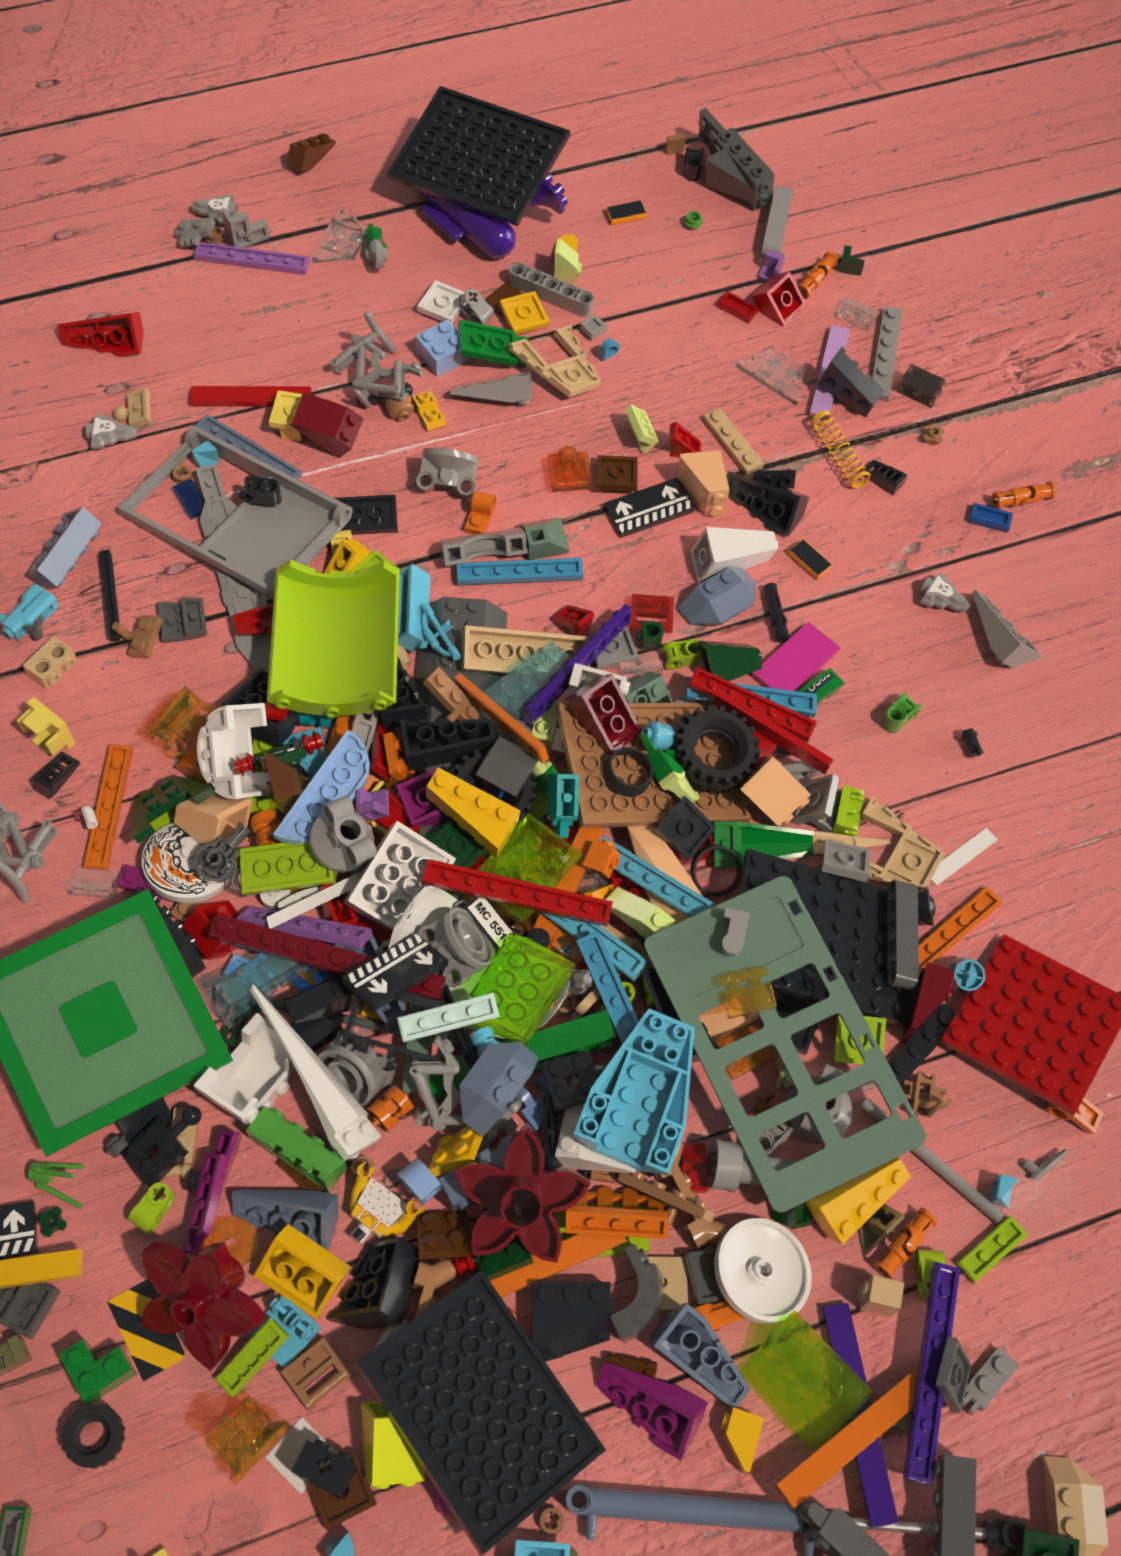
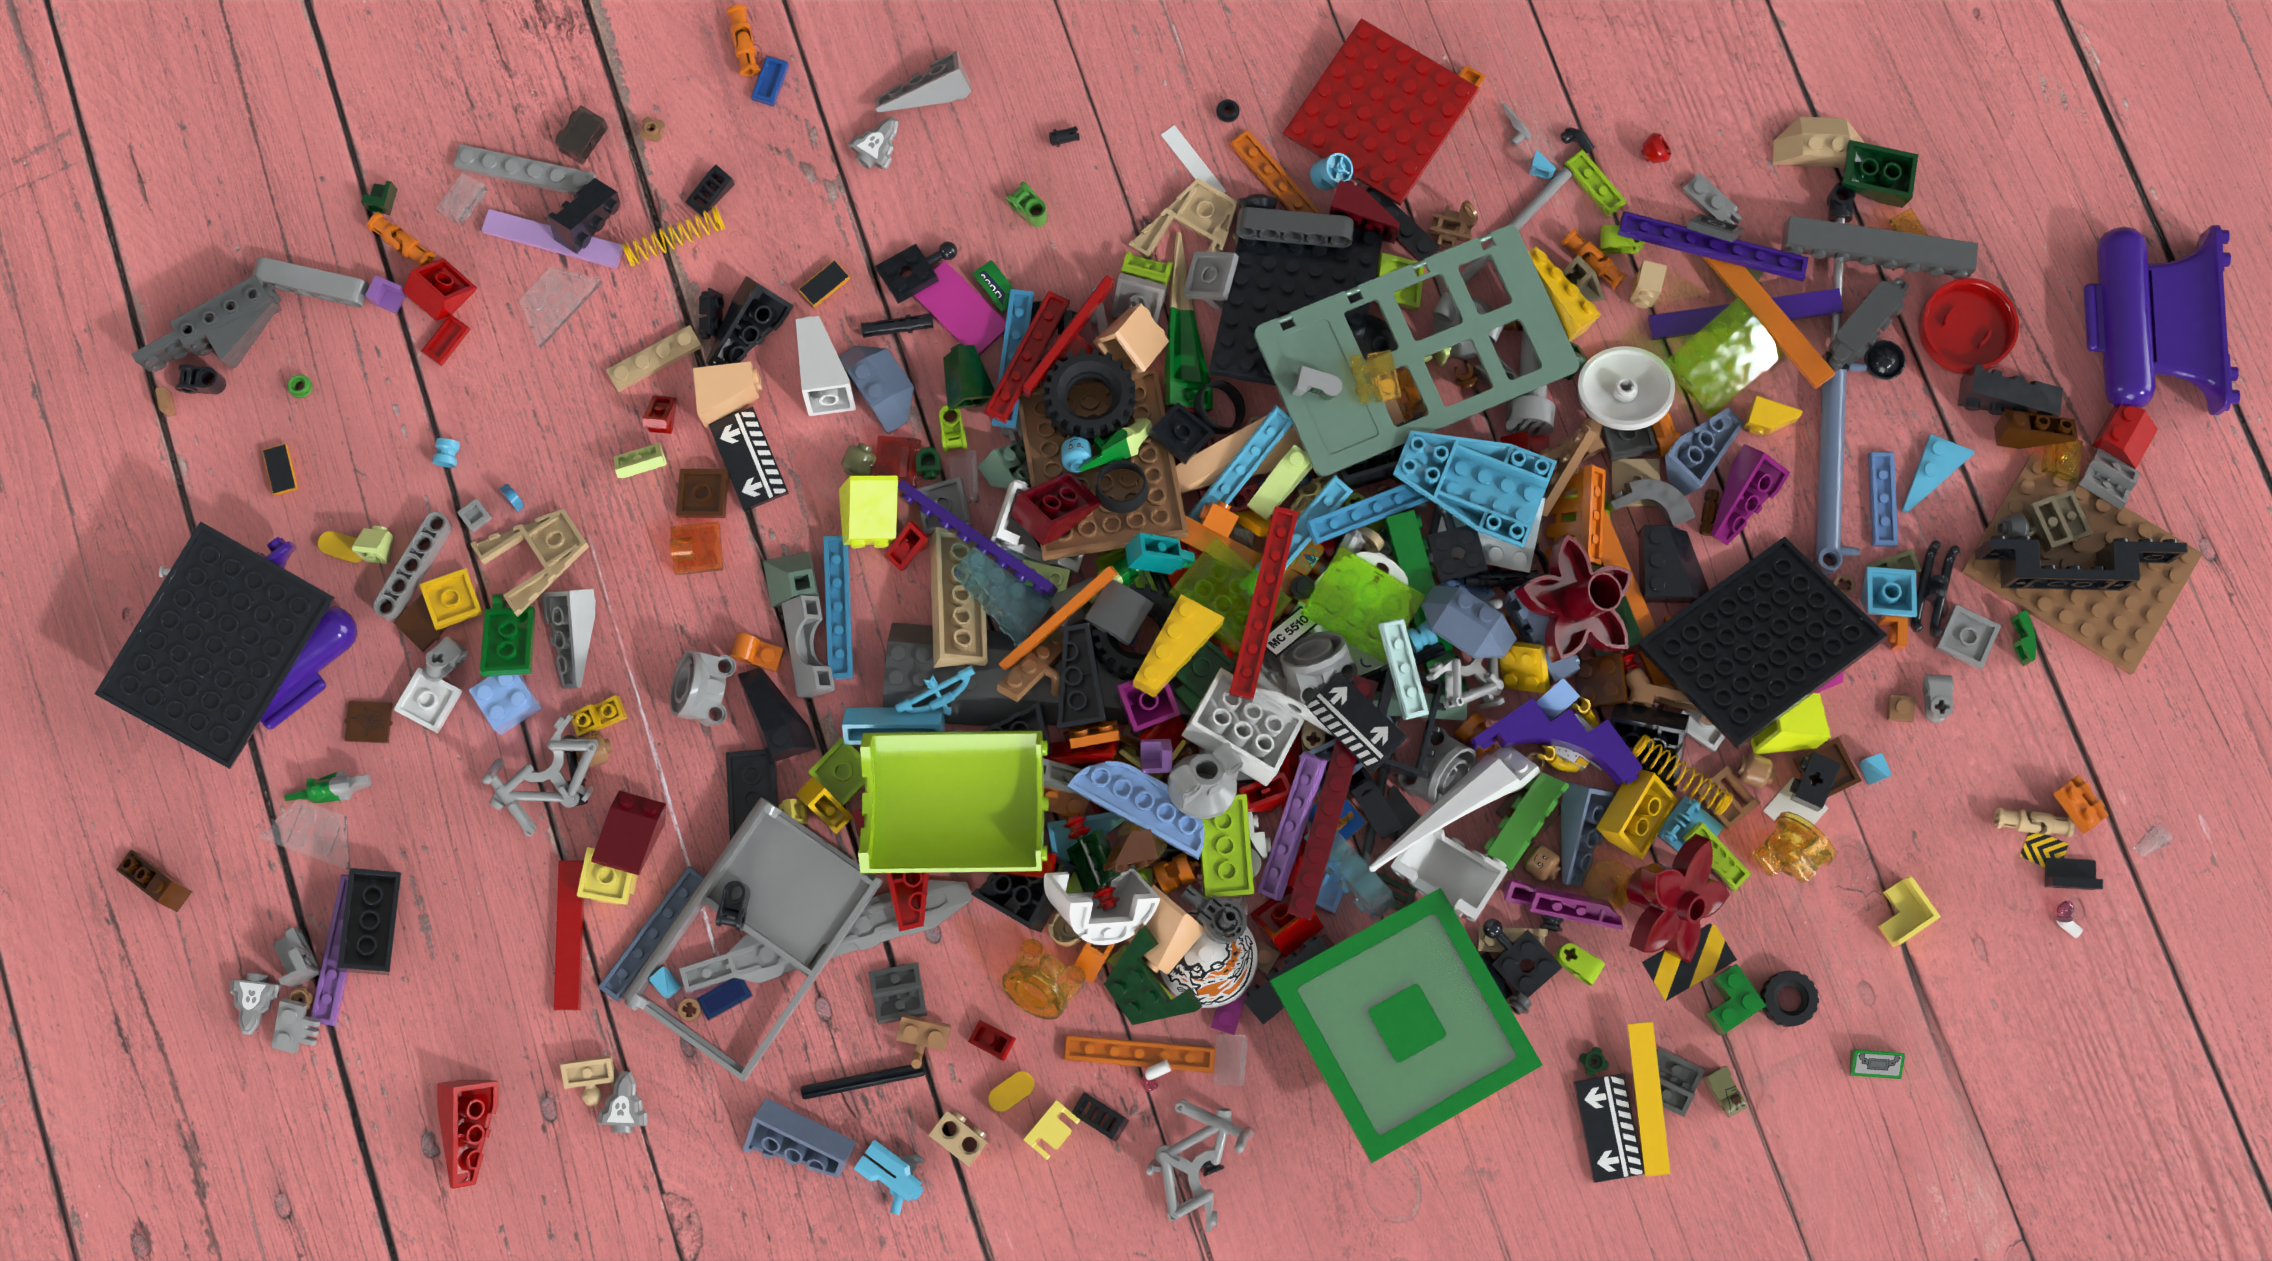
camera: 85 degrees left, 15 degrees up
(45, 1172) = (1548, 1074): bright green plant -> none
(87, 705) = (1011, 1091): none -> yellow tile
(129, 686) = (992, 1040): none -> red slope
(256, 1171) = (1542, 863): none -> medium nougat head
(268, 267) = (369, 921): none -> black brick
(308, 1362) = (1720, 807): none -> yellow piece
(311, 901) = (1266, 819): white sticker -> none
(343, 1406) = (1756, 770): none -> medium nougat head
(372, 1224) = (1531, 725): none -> dark purple arch
(420, 526) = (776, 720): none -> black wedge
(427, 270) = (368, 722): none -> reddish brown piece
(603, 585) = (868, 510): none -> neon yellow slope
(643, 307) = (446, 453): none -> medium azure wheel
(650, 582) = (858, 460): none -> olive head
(832, 626) = (913, 260): none -> black plate
(1020, 879) = (1227, 104): none -> black plate
(1039, 1315) = (1656, 149): none -> red cone
(1041, 1232) = (1578, 136): none -> black arm

